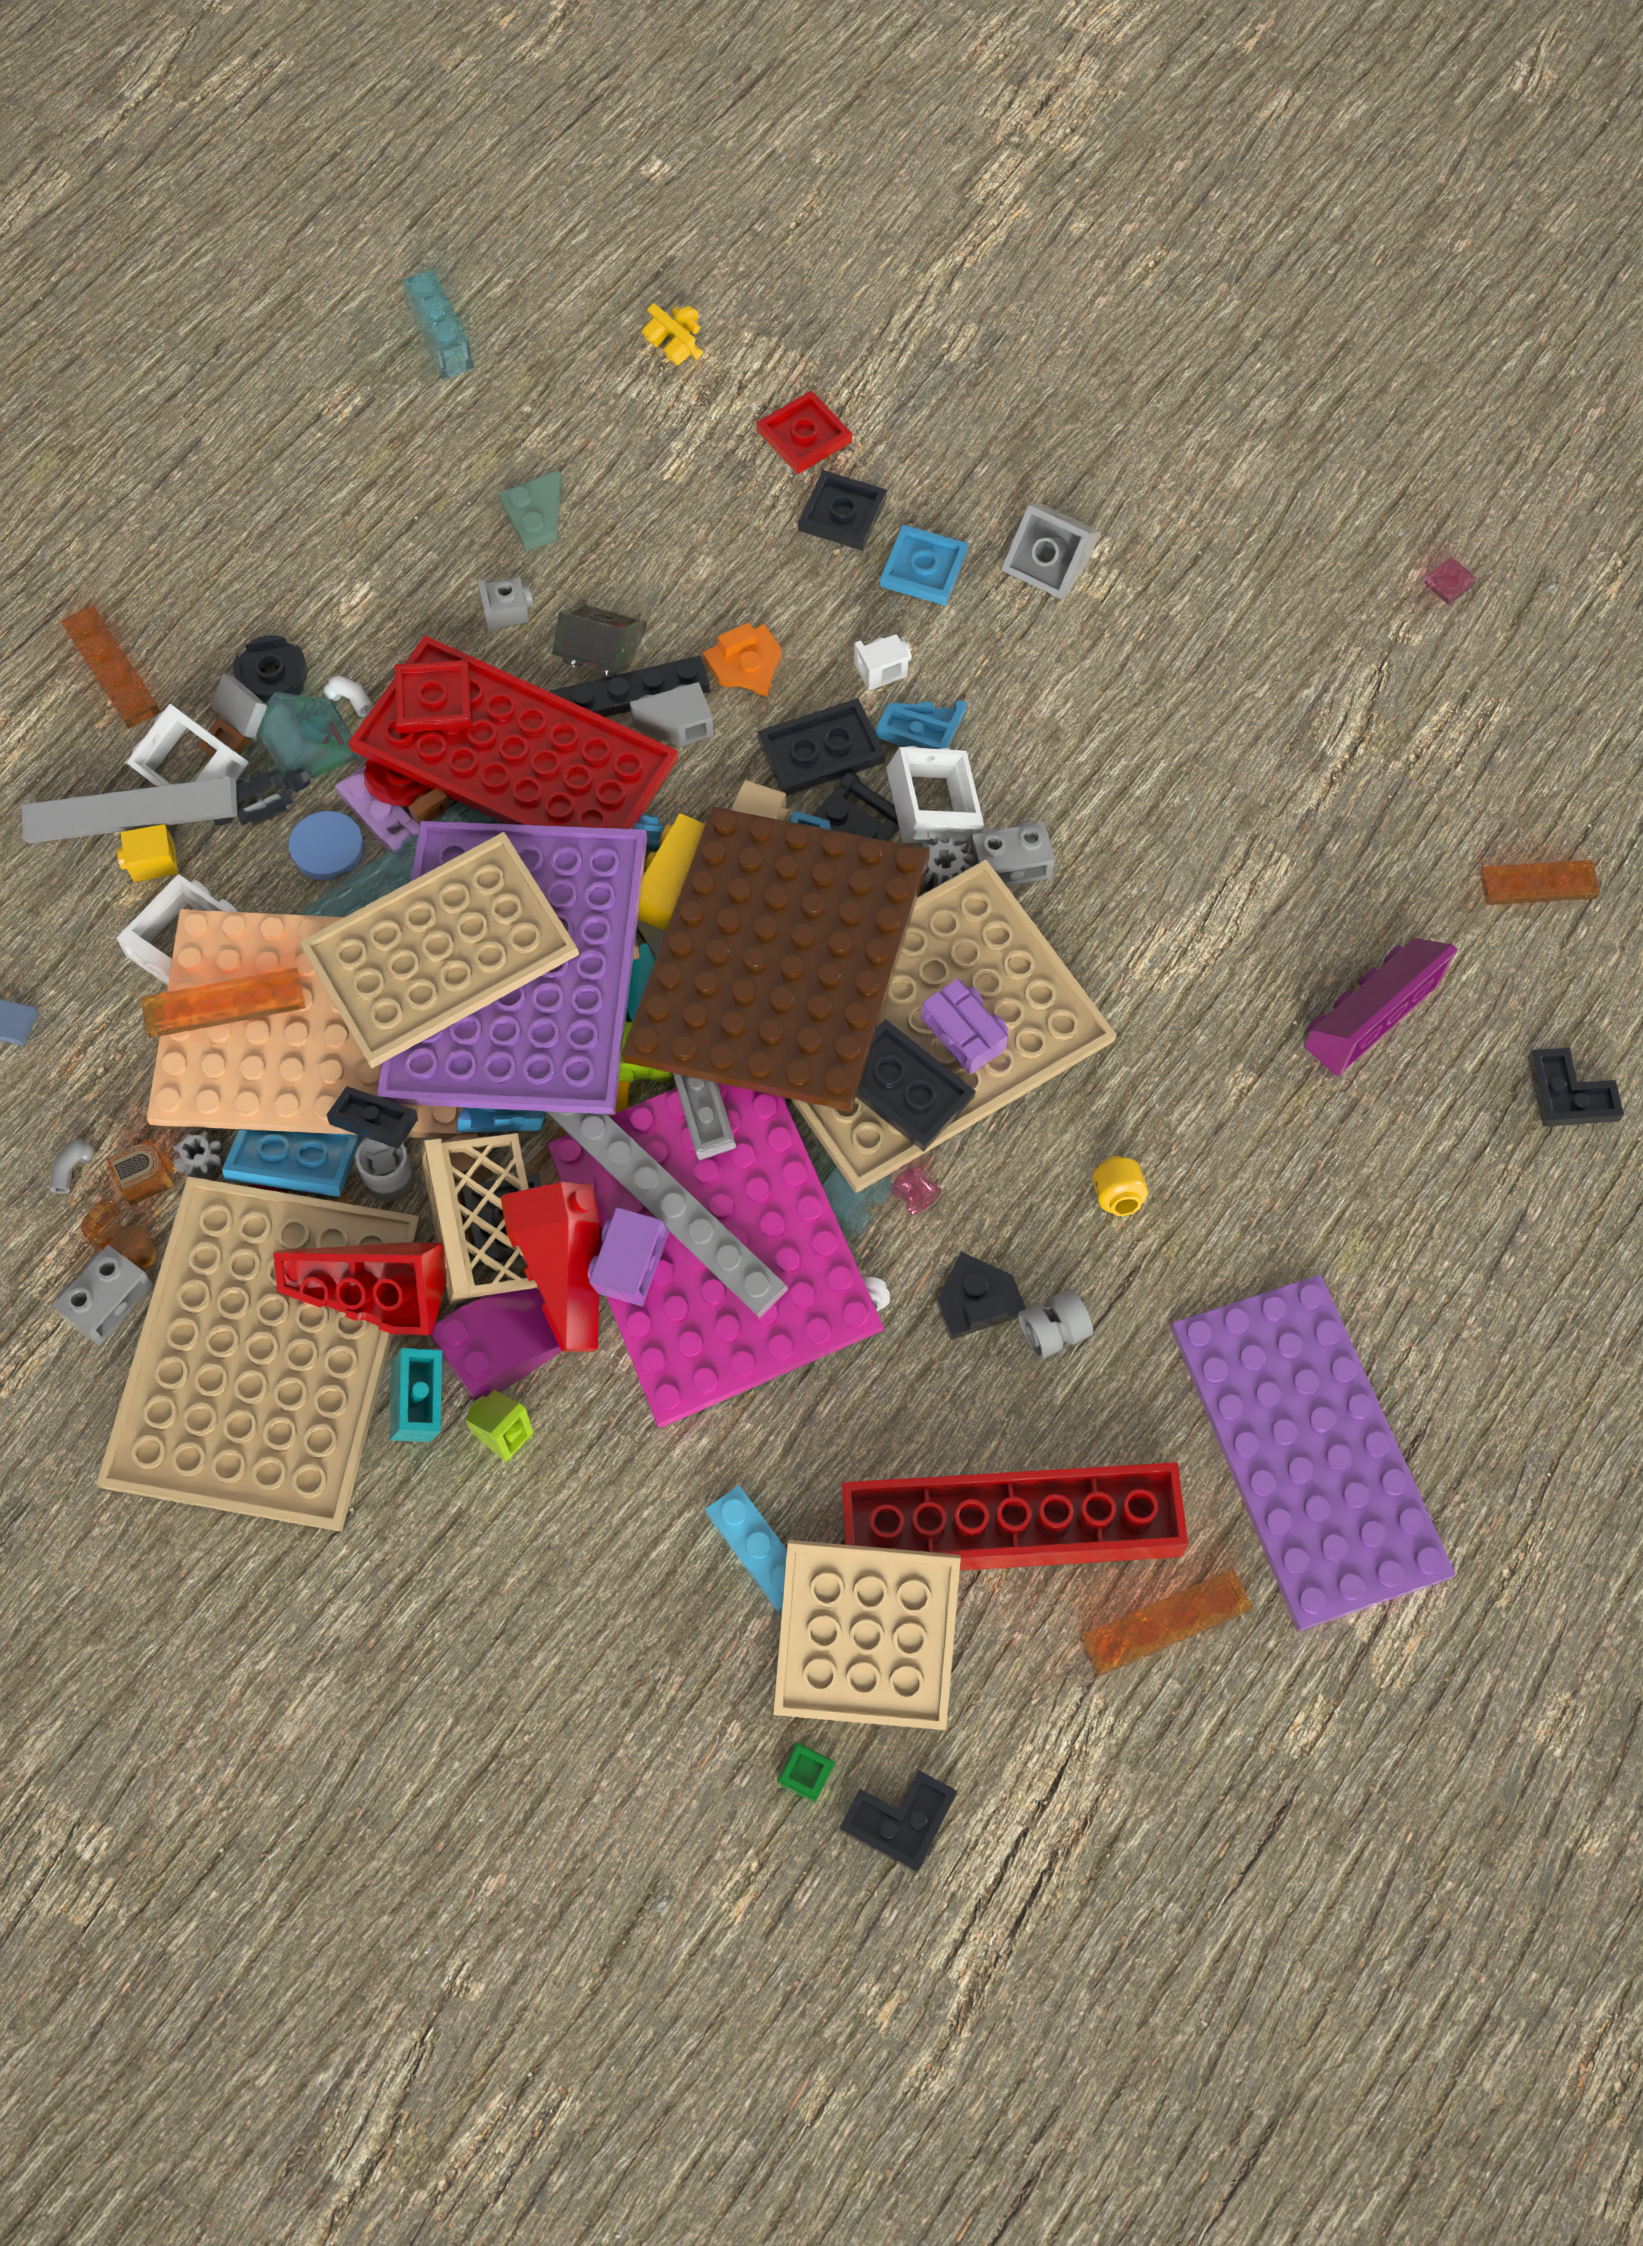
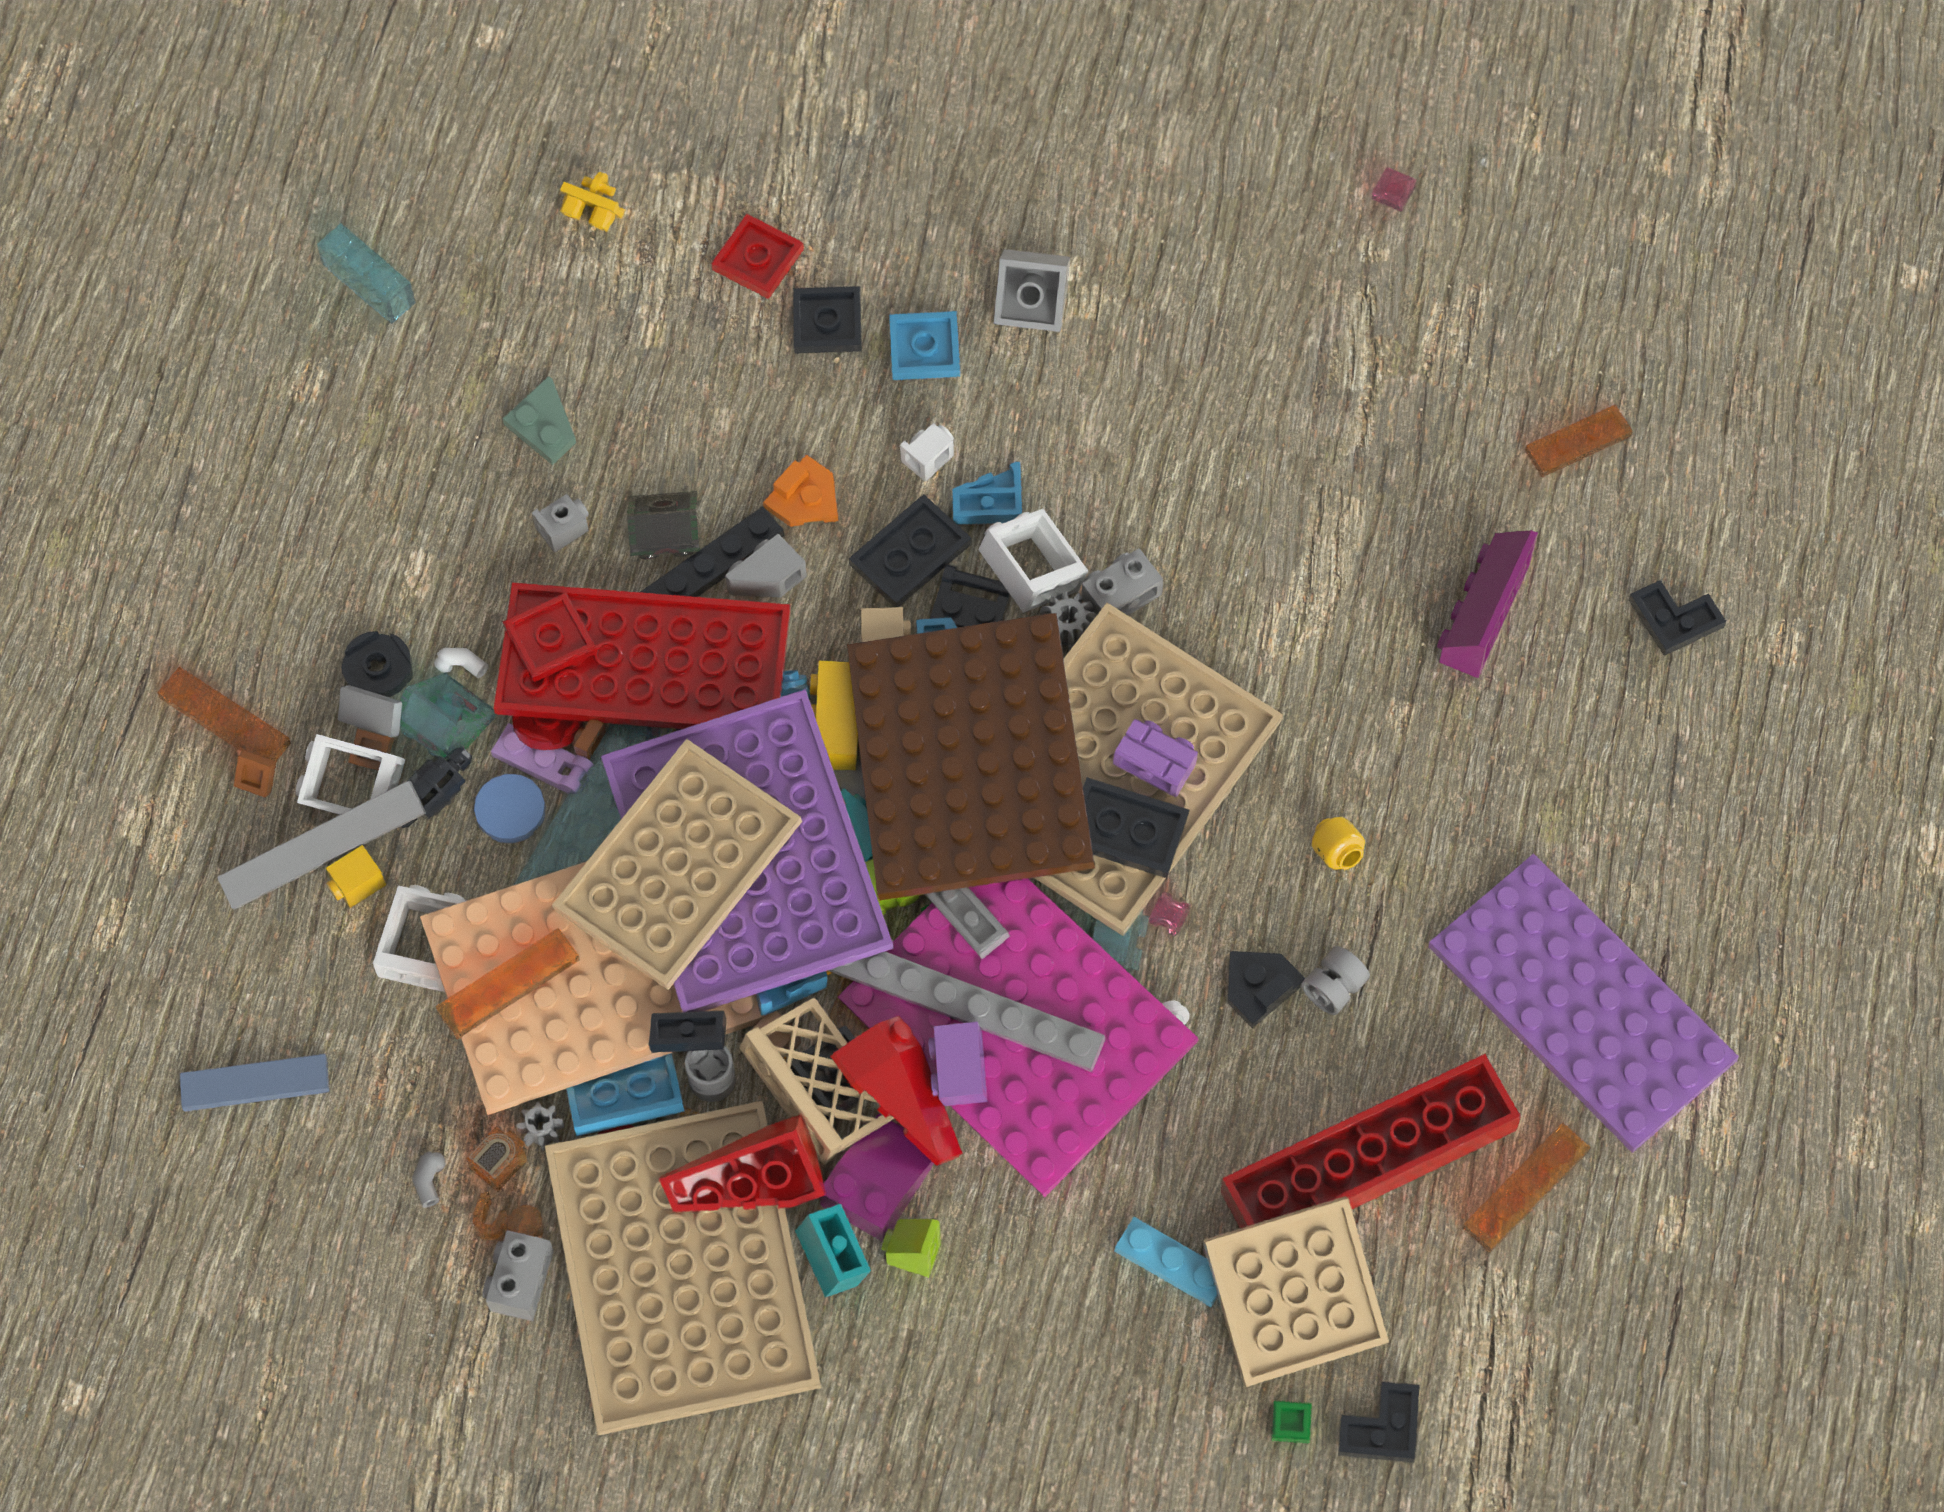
camera: 20 degrees left, 0 degrees up
(107, 725) = (254, 773): none -> dark orange plate

